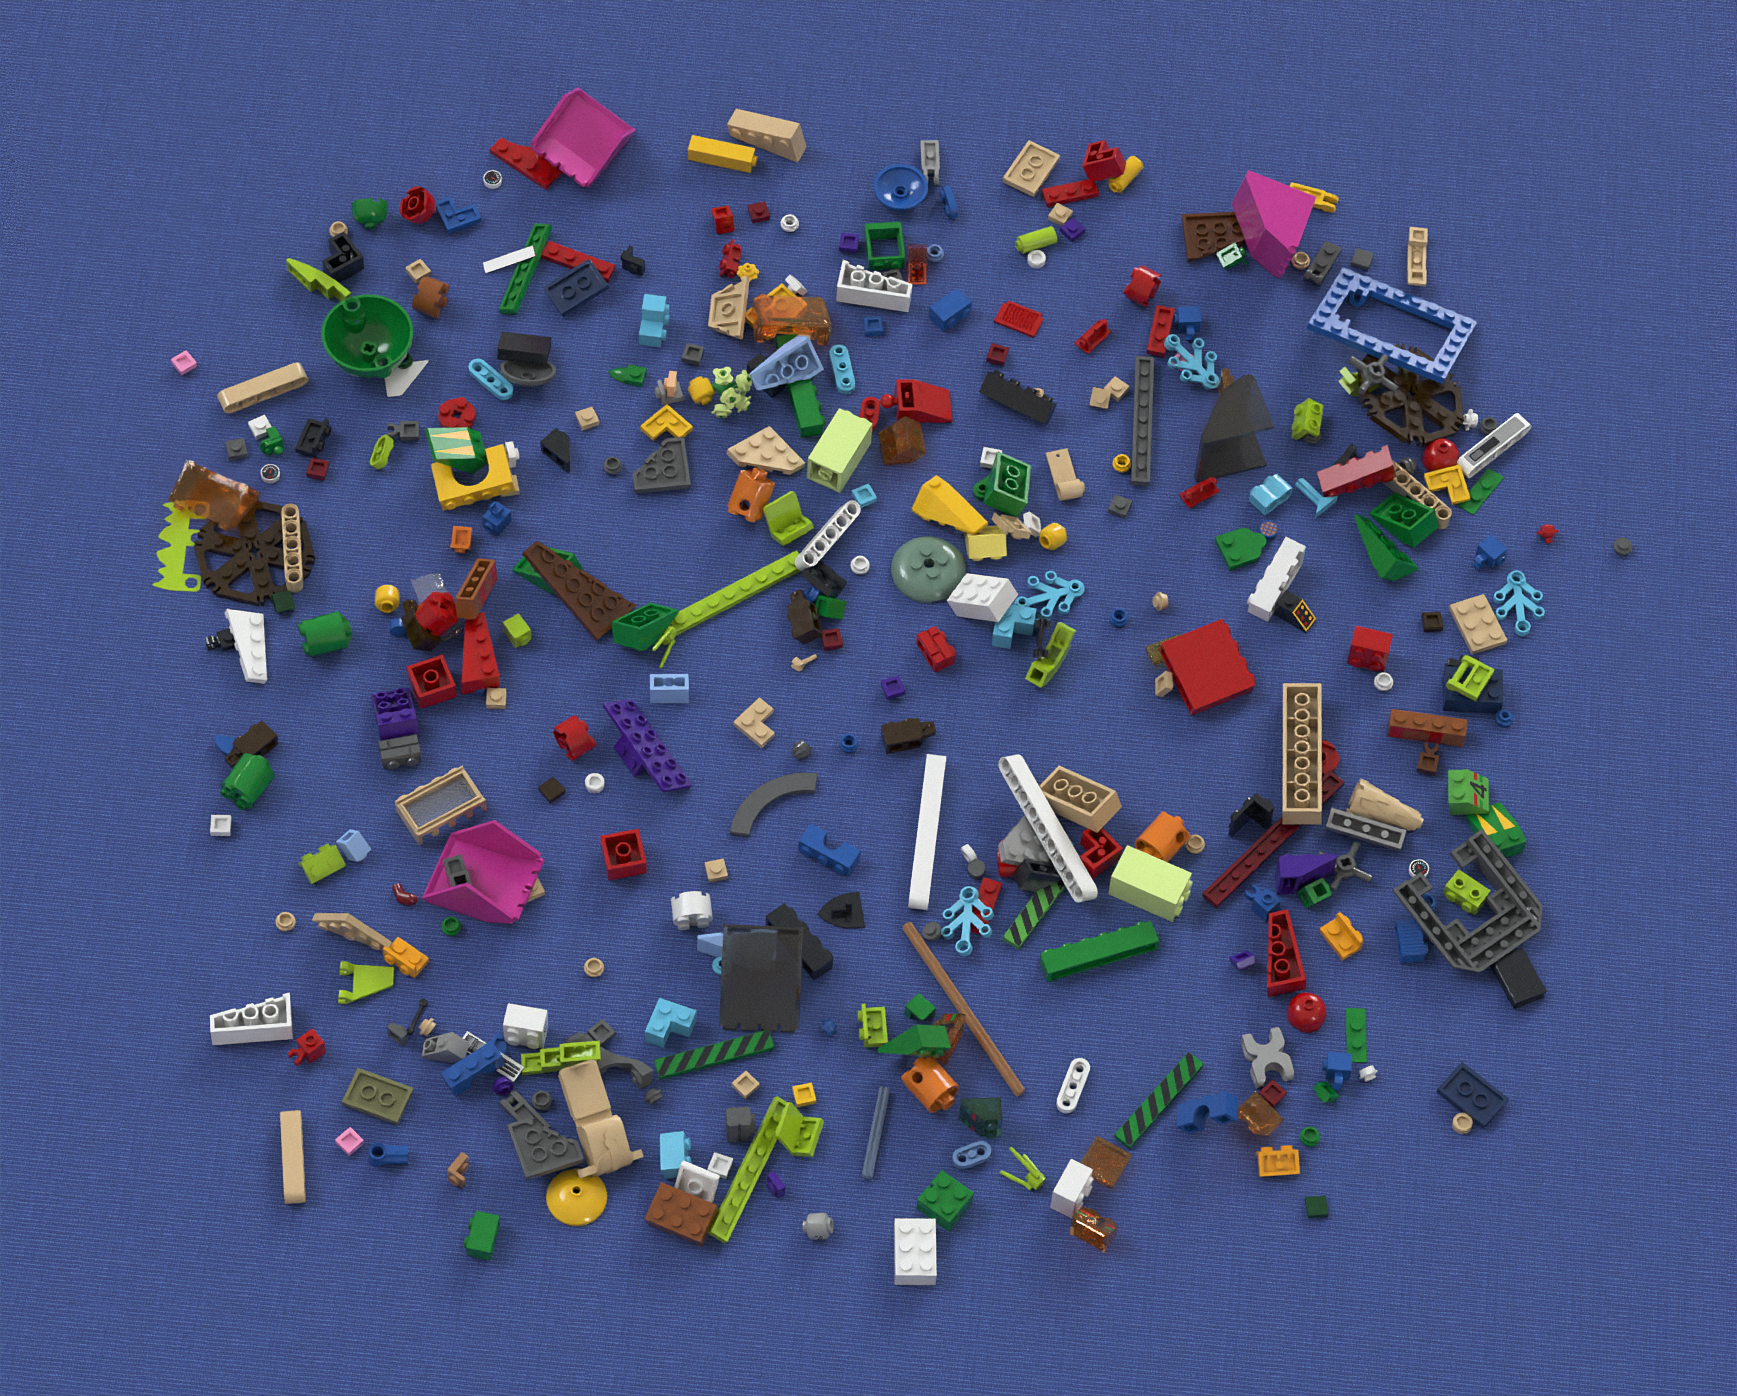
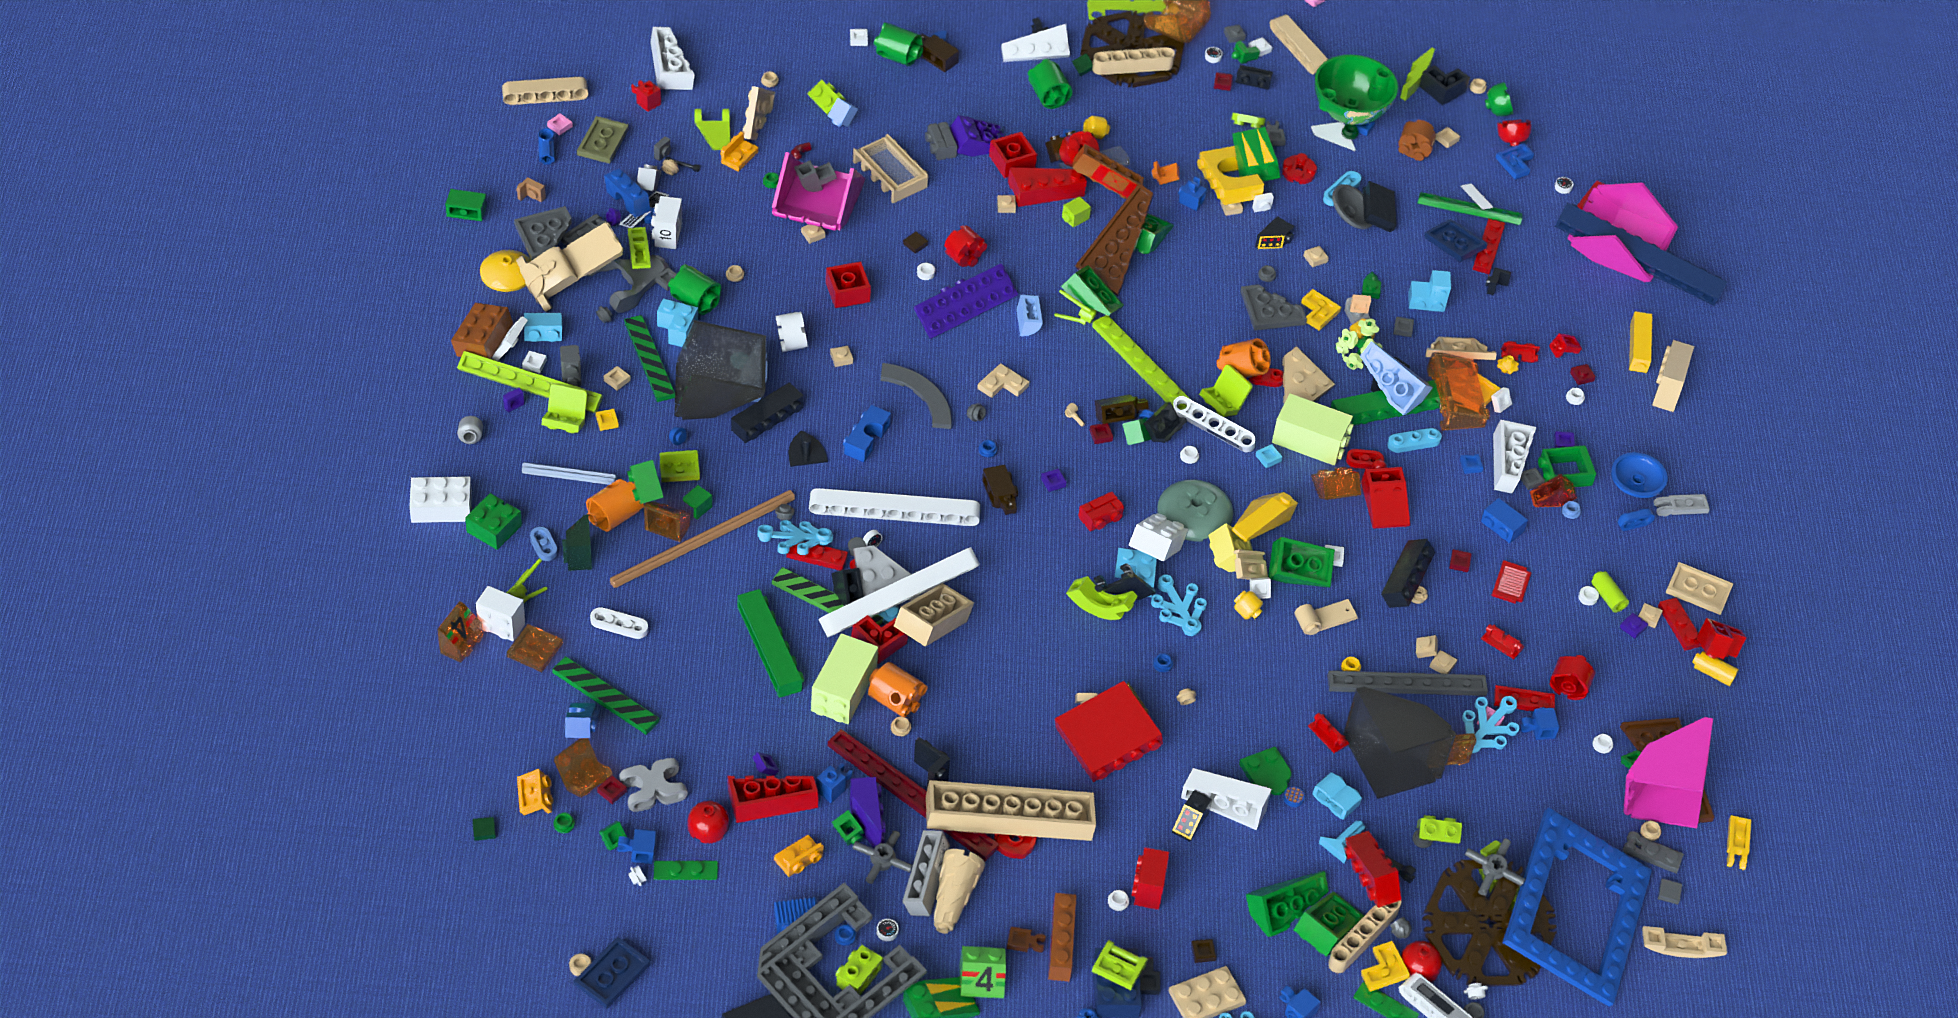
camera: 85 degrees right, 10 degrees down
(616, 124) = (1651, 258): none -> dark blue brick
(629, 1000) = (695, 289): none -> green cylinder
(1120, 506) = (1298, 665): dark grey plate -> none
(1207, 278) = (1603, 743): none -> white plate

